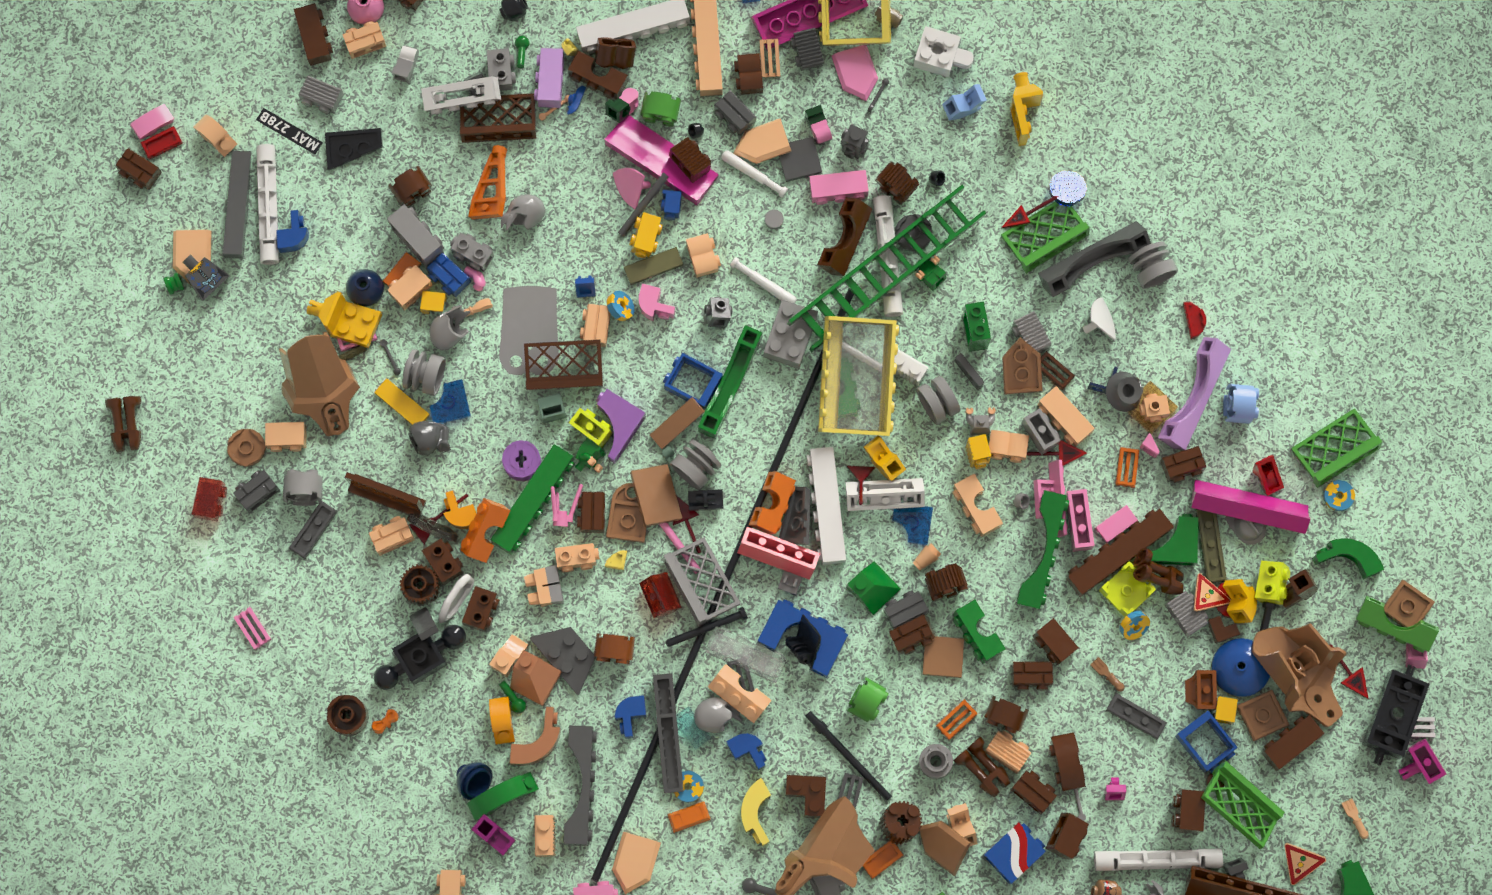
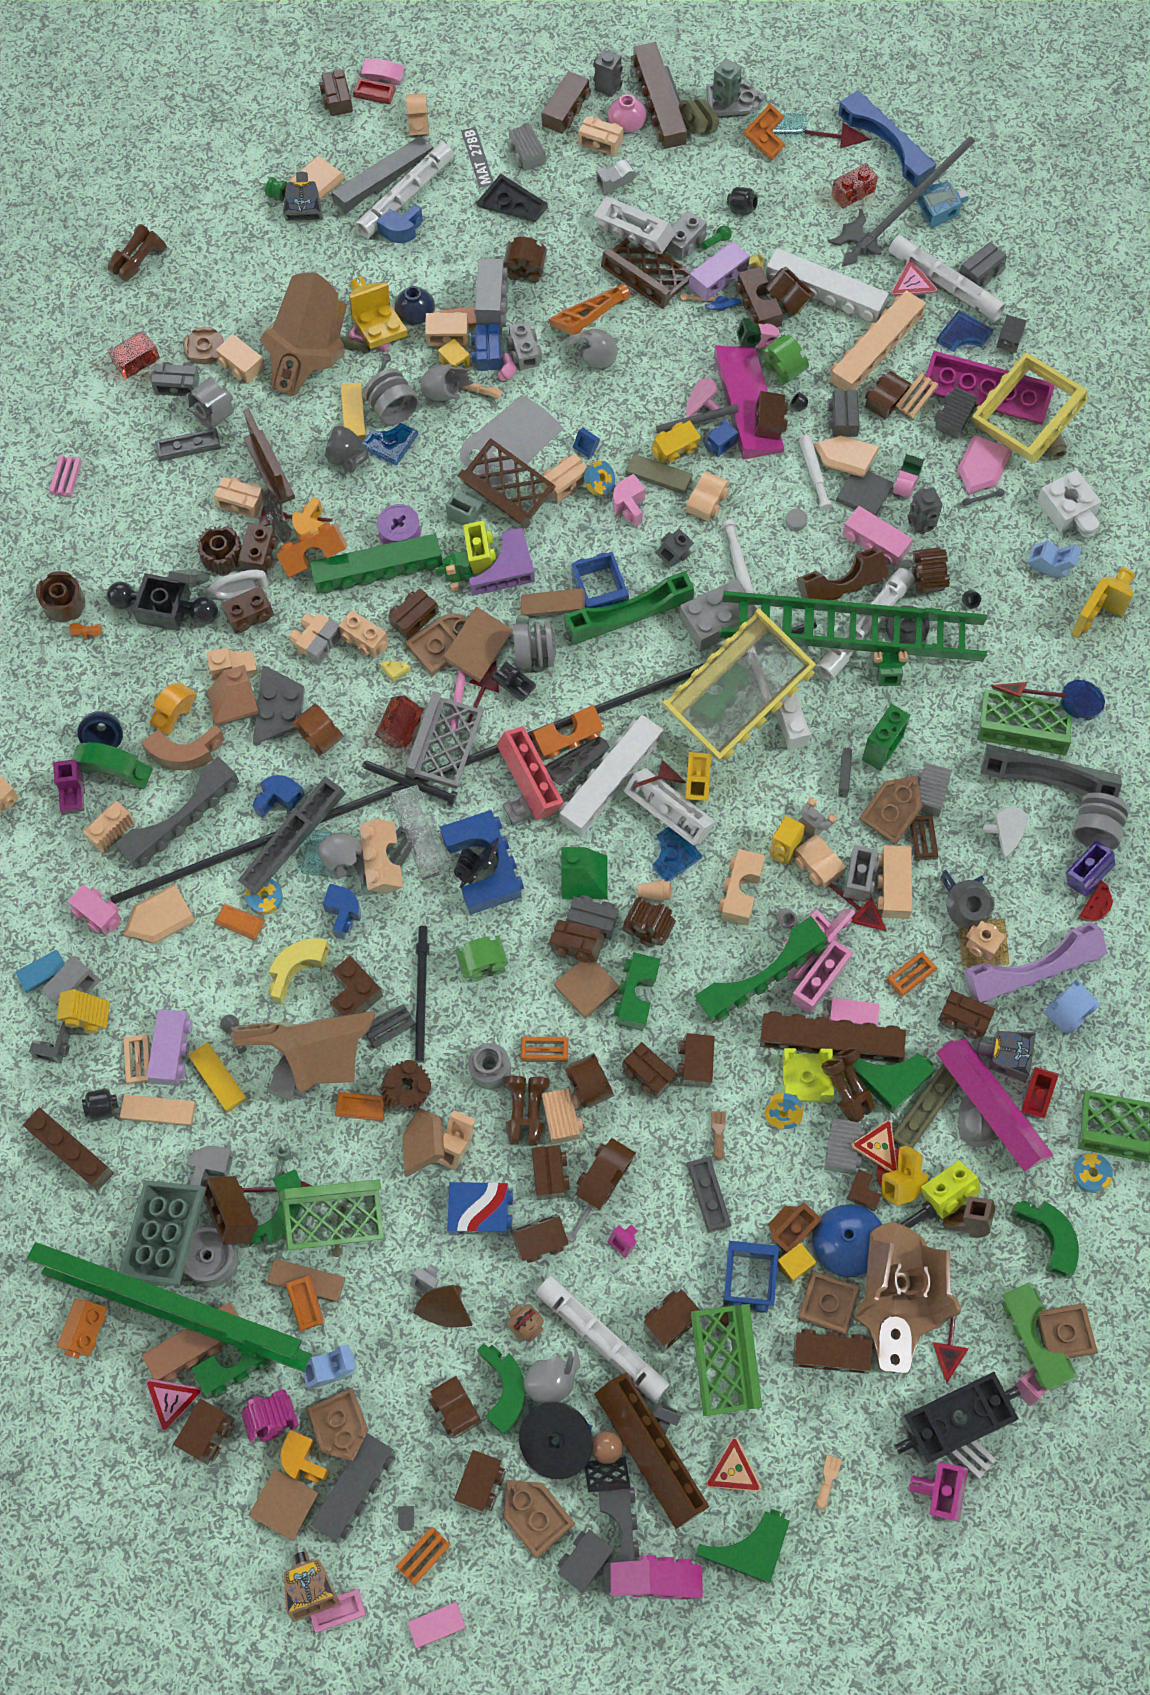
camera: 45 degrees right, 10 degrees down
(517, 704) = (200, 710): green bar -> none
(561, 518) = (384, 595): bright pink plant -> none
(938, 400) = (793, 768): light grey wheel -> none
(1149, 446) = (948, 971): bright pink slope -> none
(1173, 301) = (1090, 868): none -> dark purple brick
(1230, 465) = (1010, 1053): none -> dark grey torso

